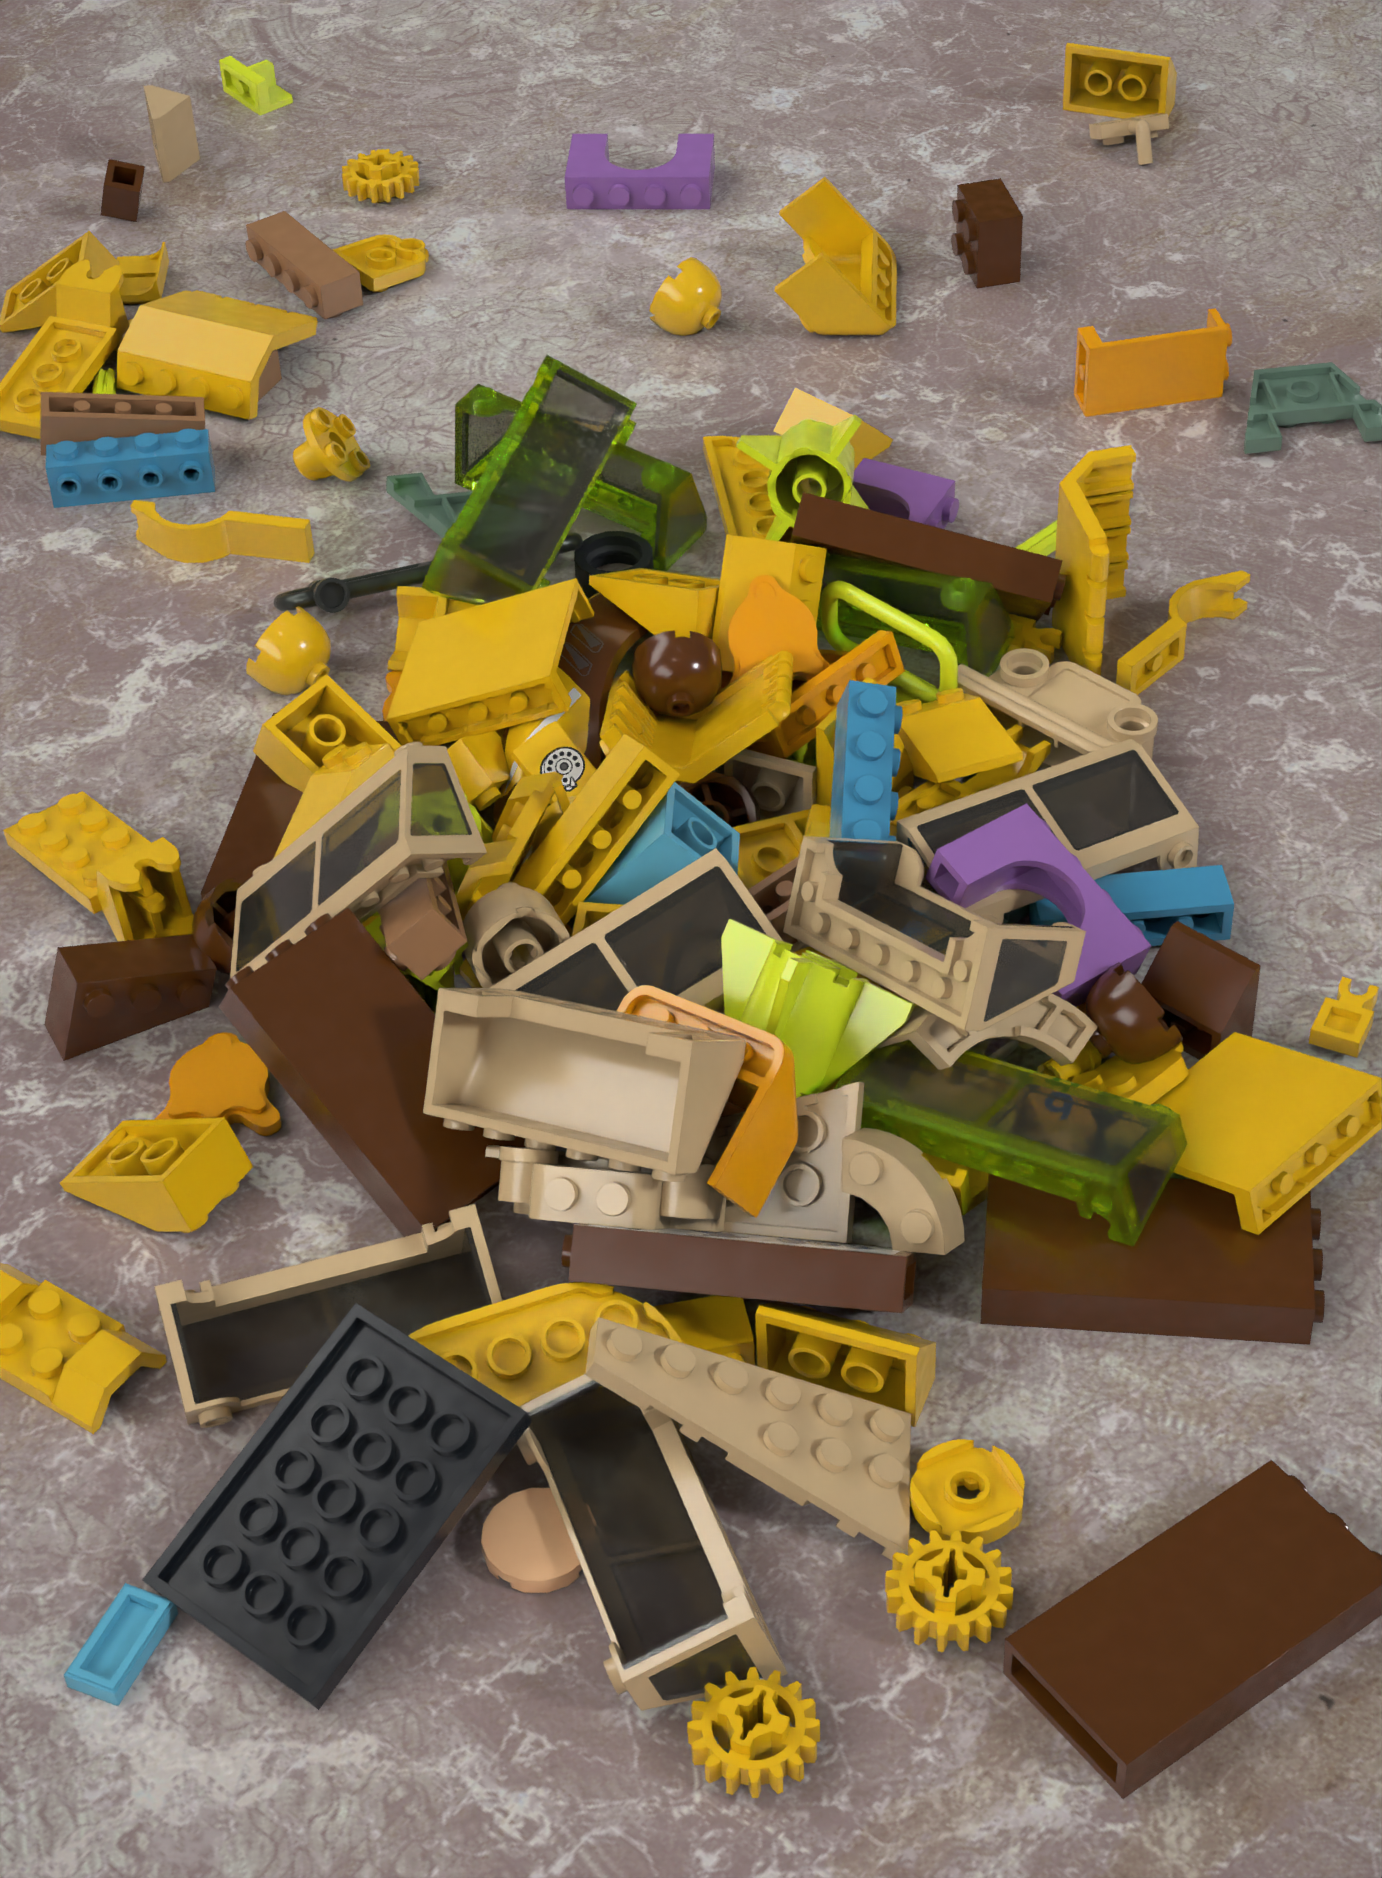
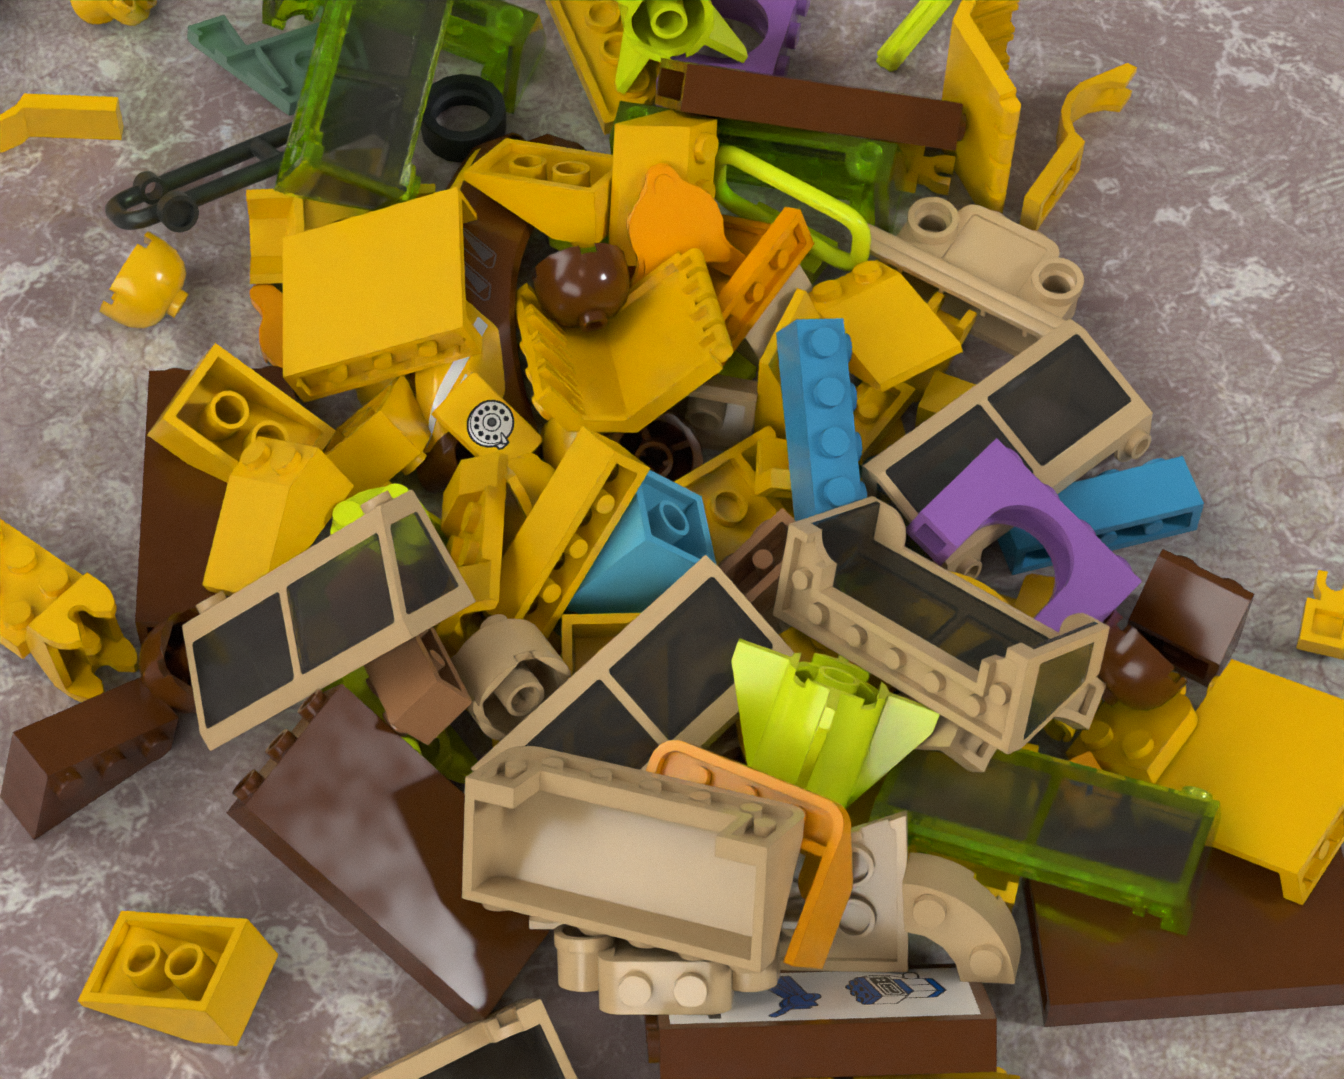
camera: 15 degrees left, 15 degrees up
(222, 1081) = (212, 859): light orange tile -> none

